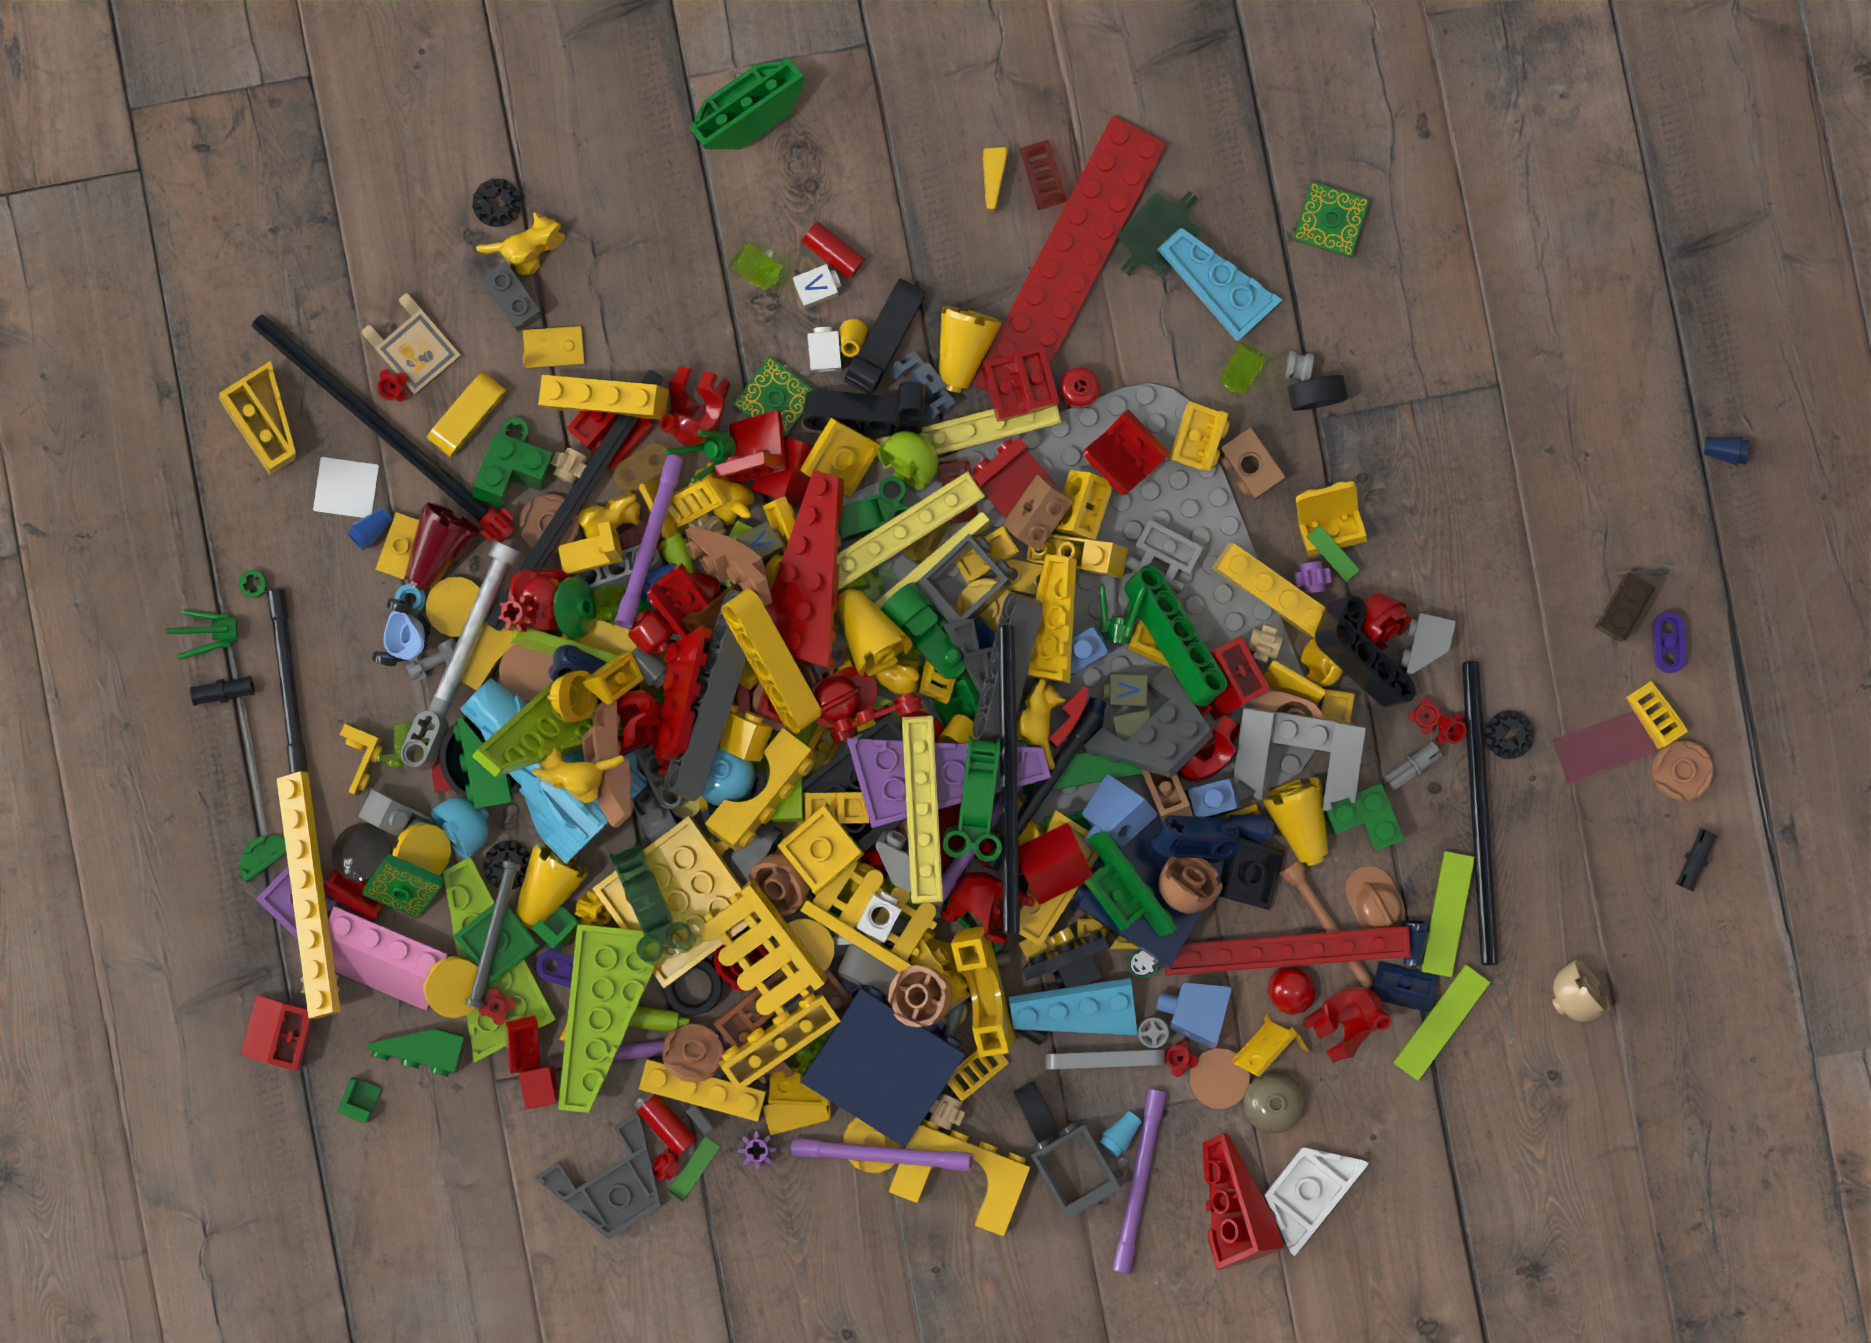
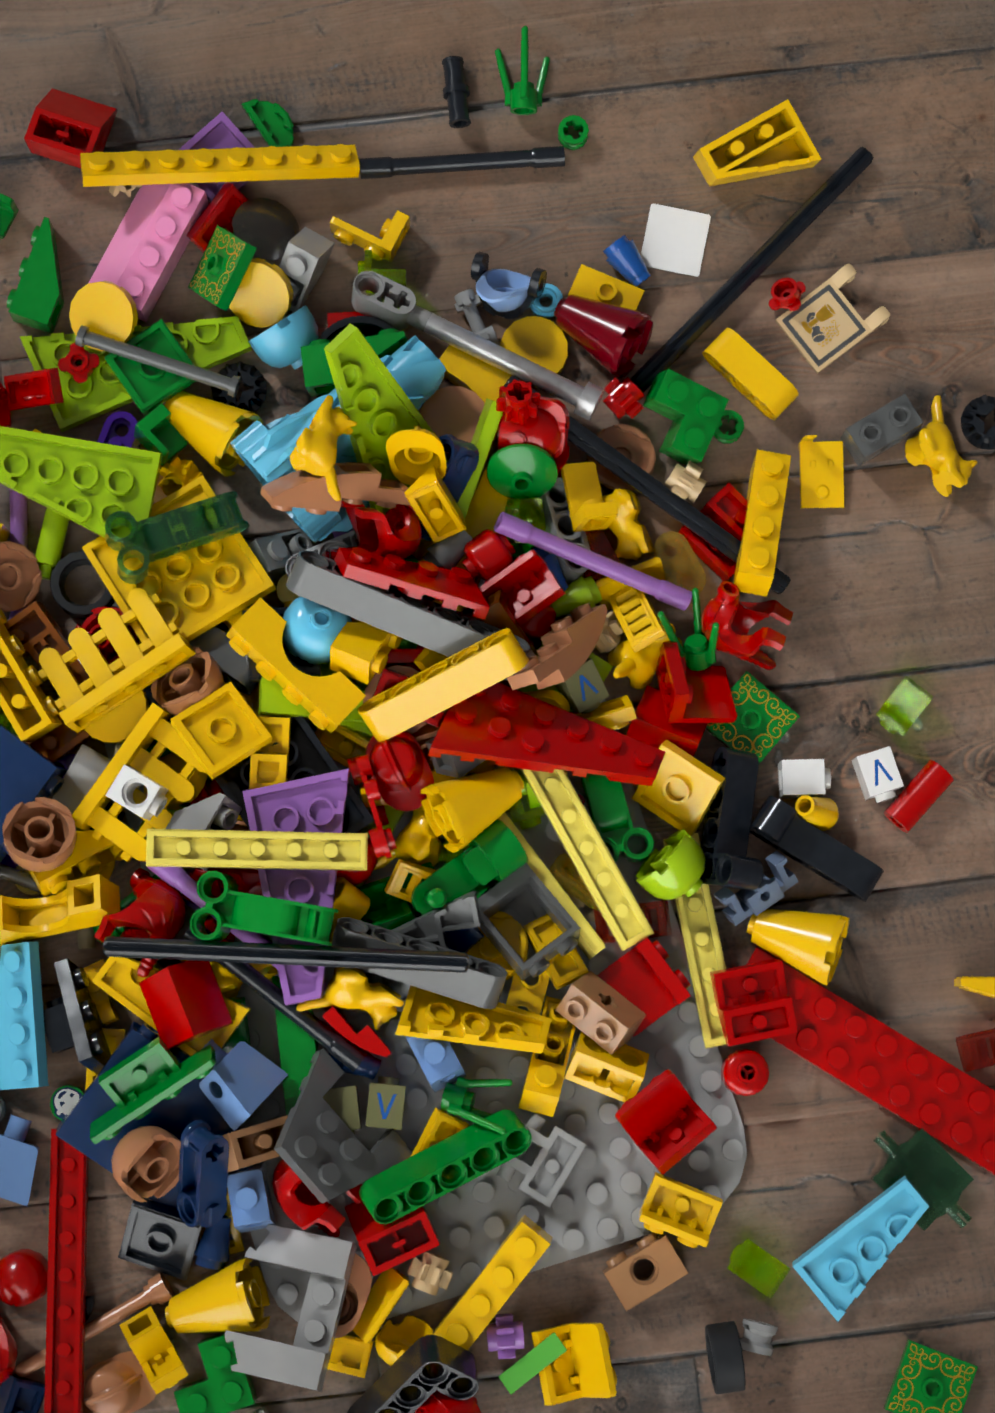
camera: 90 degrees right, 5 degrees down
(1343, 871) = (154, 1350): none -> yellow brick

